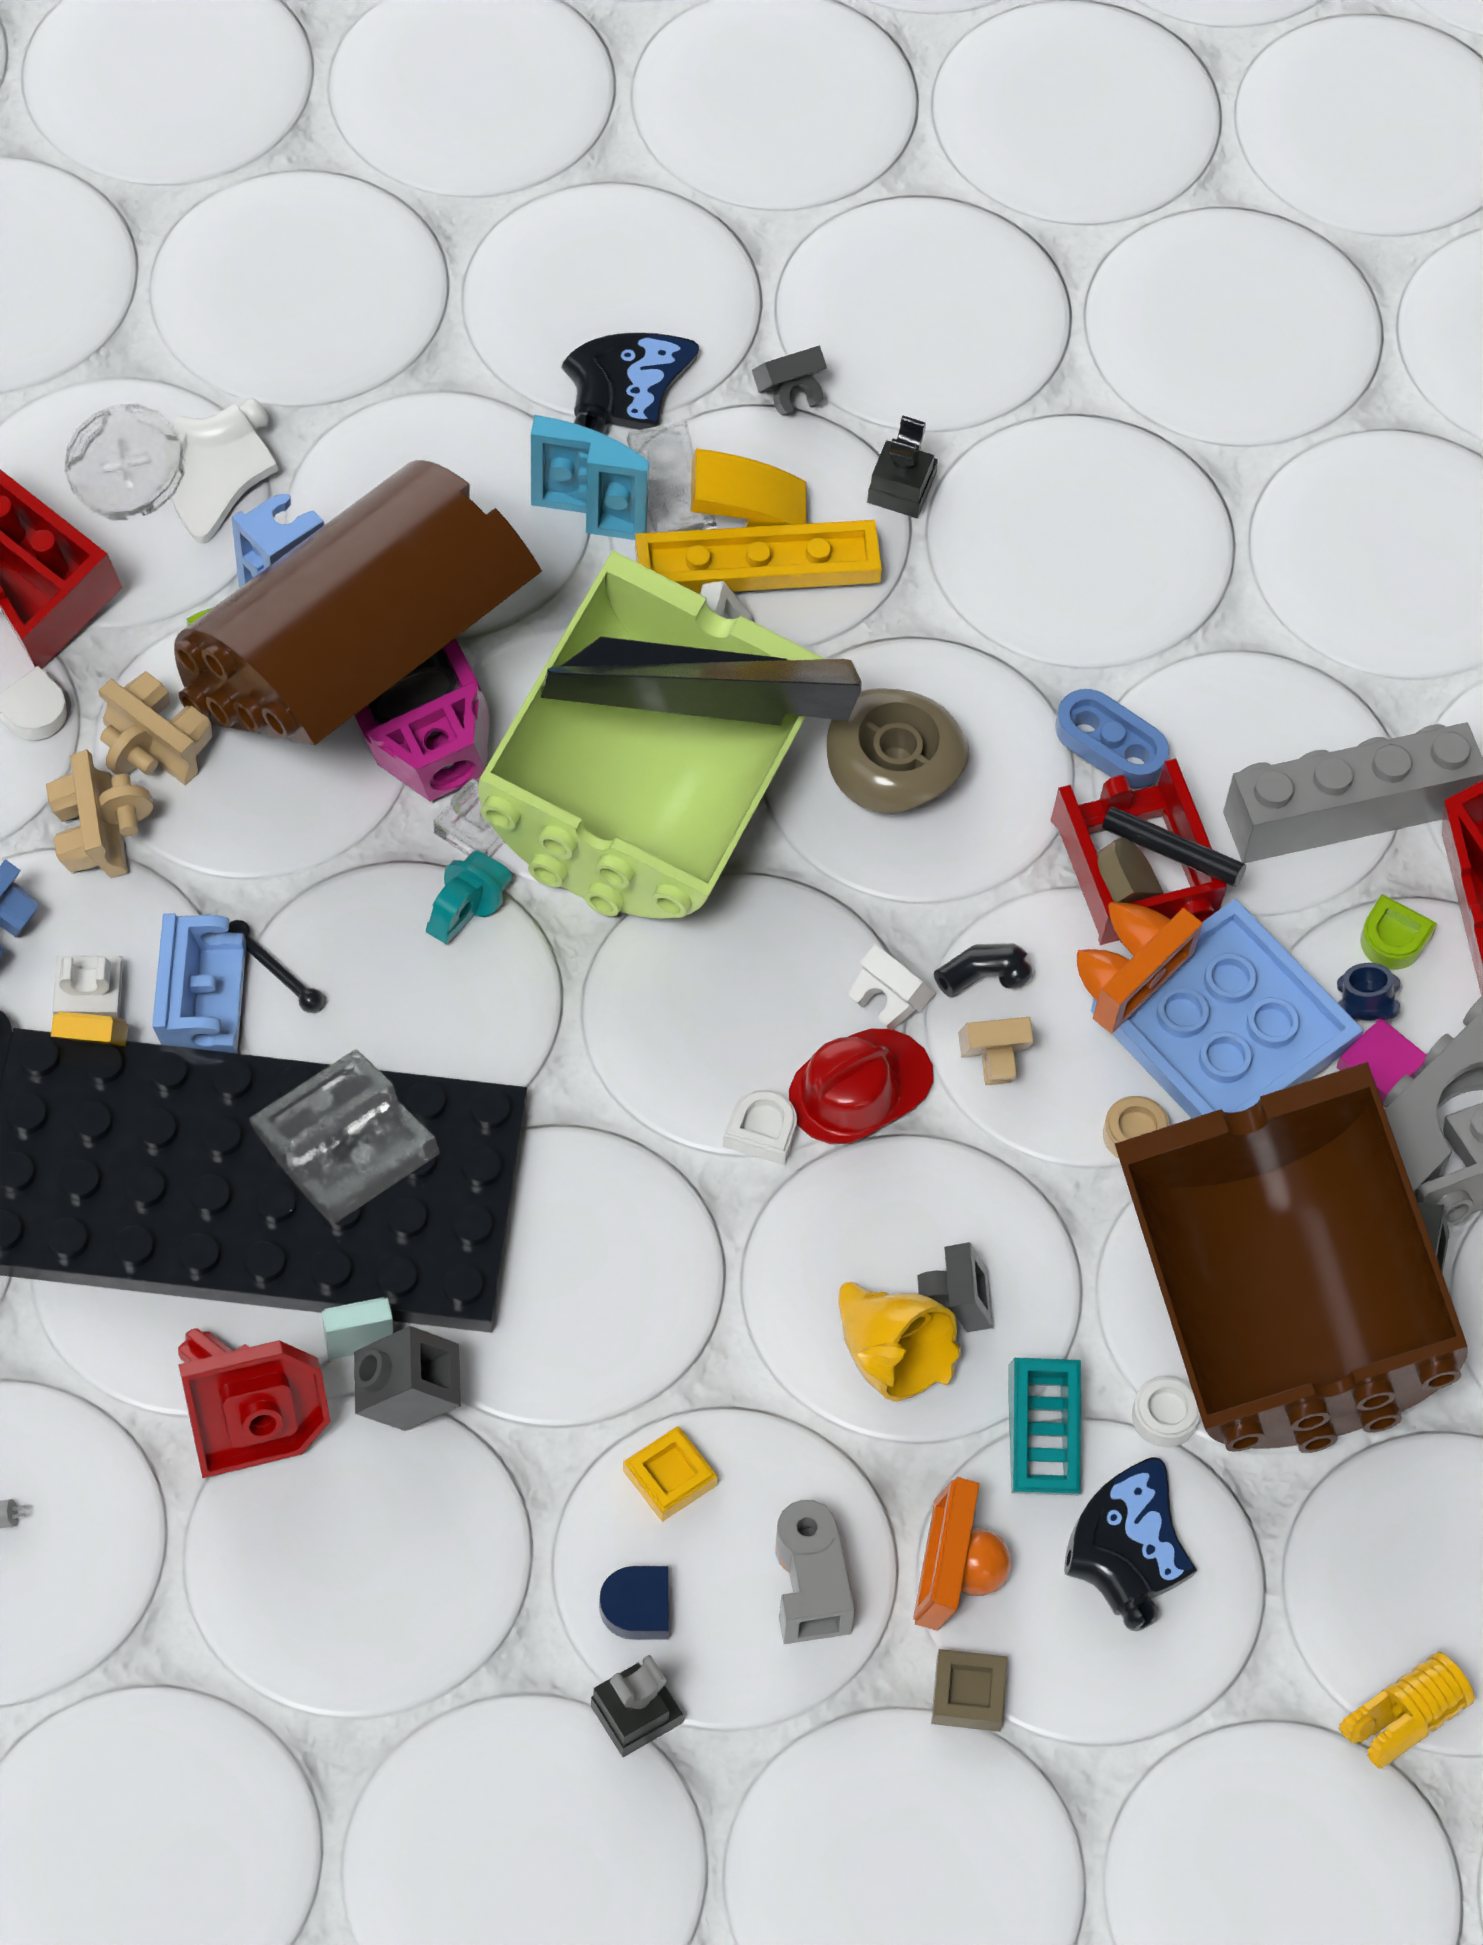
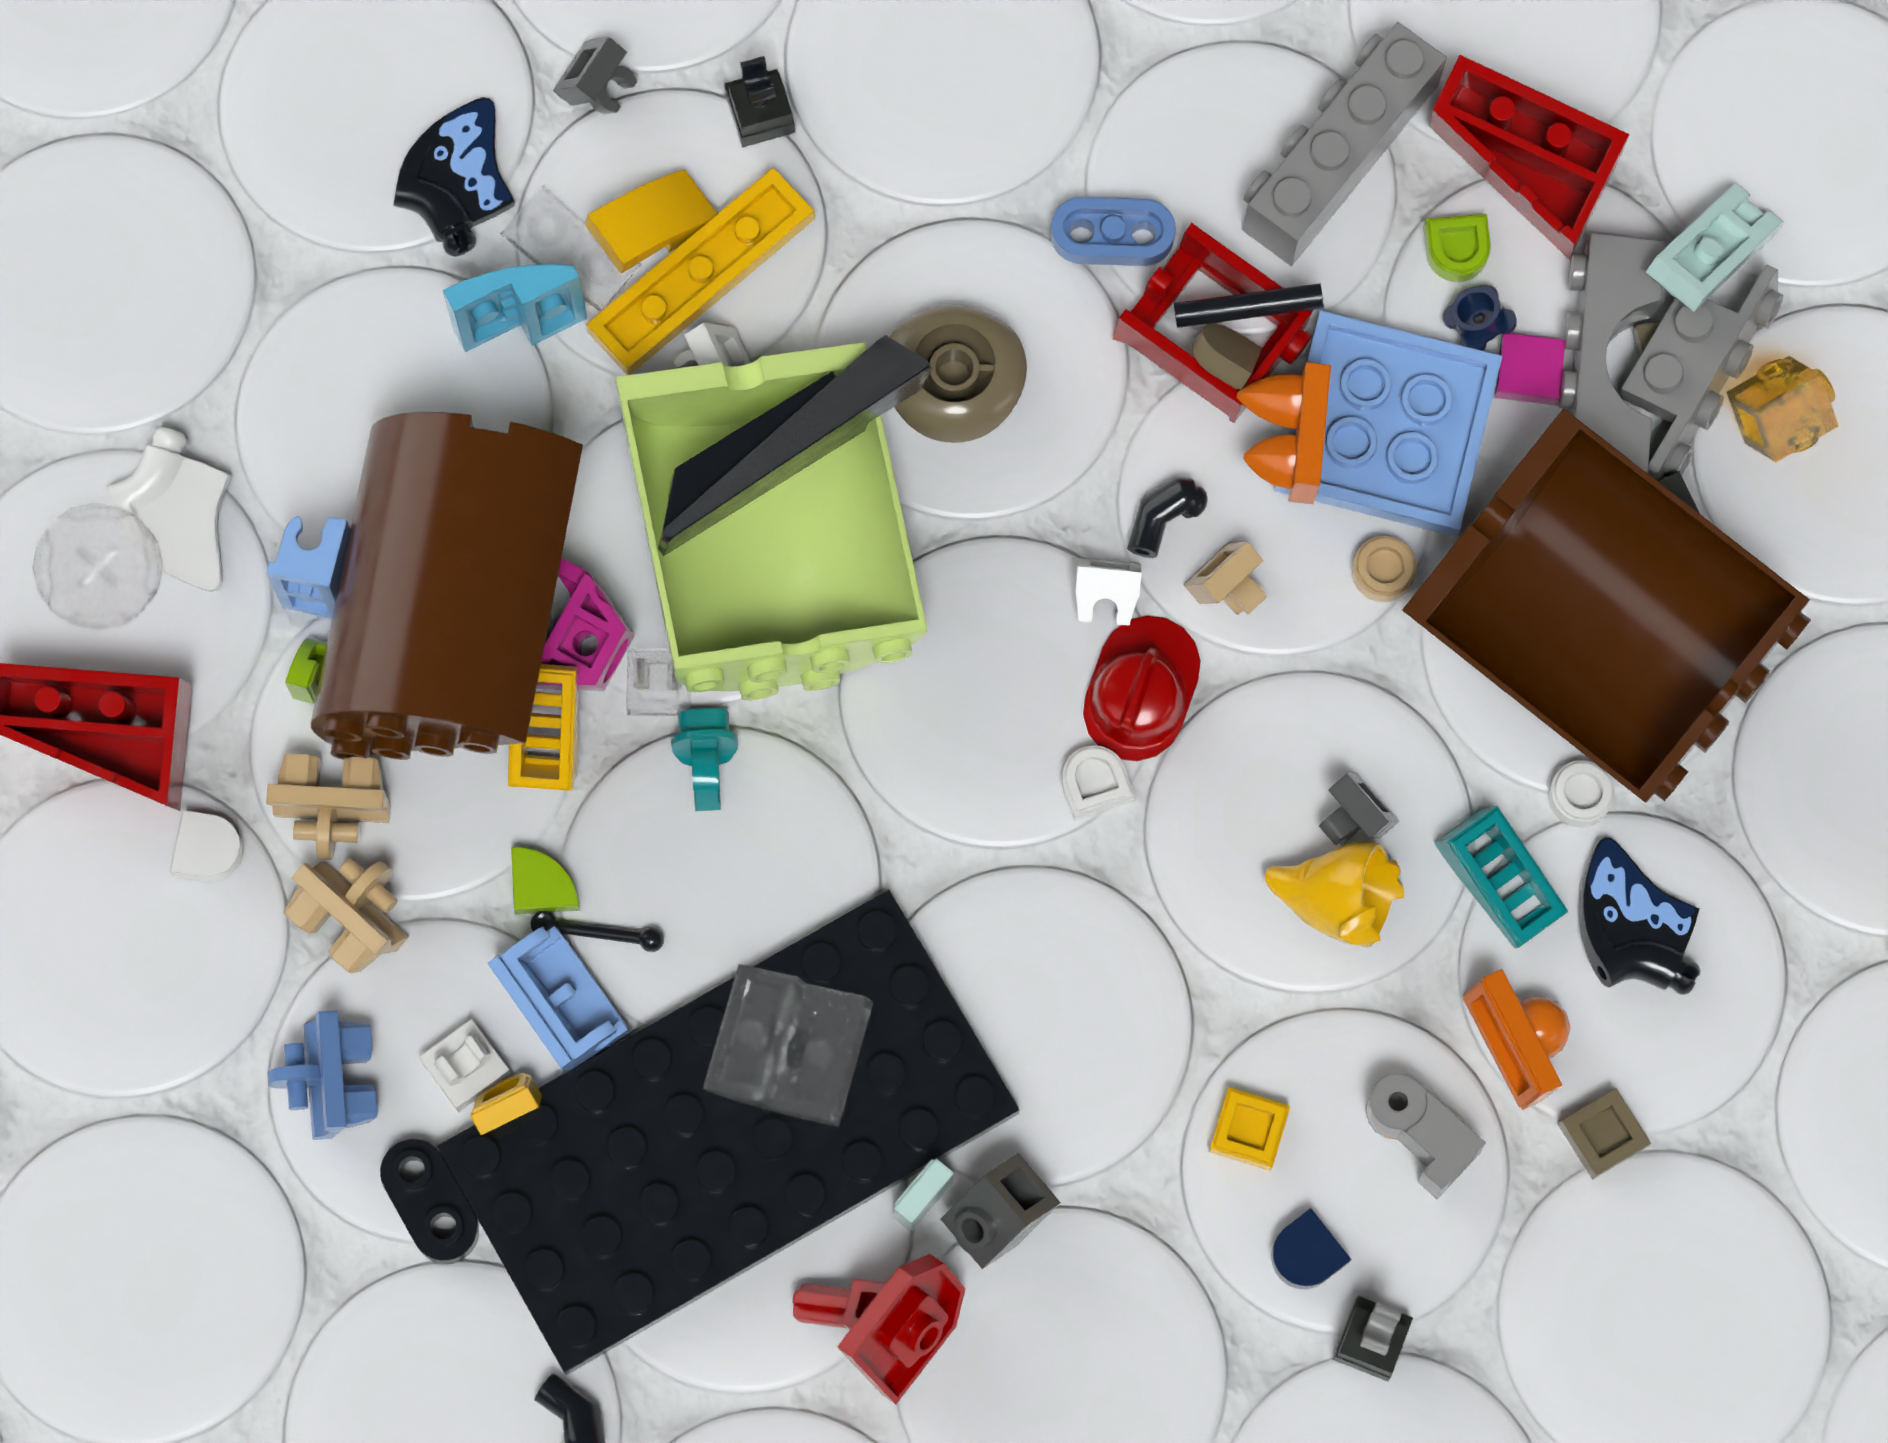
camera: 35 degrees left, 15 degrees up
(259, 901) = (540, 883): none -> lime tile
(317, 799) = (549, 771): none -> yellow slope

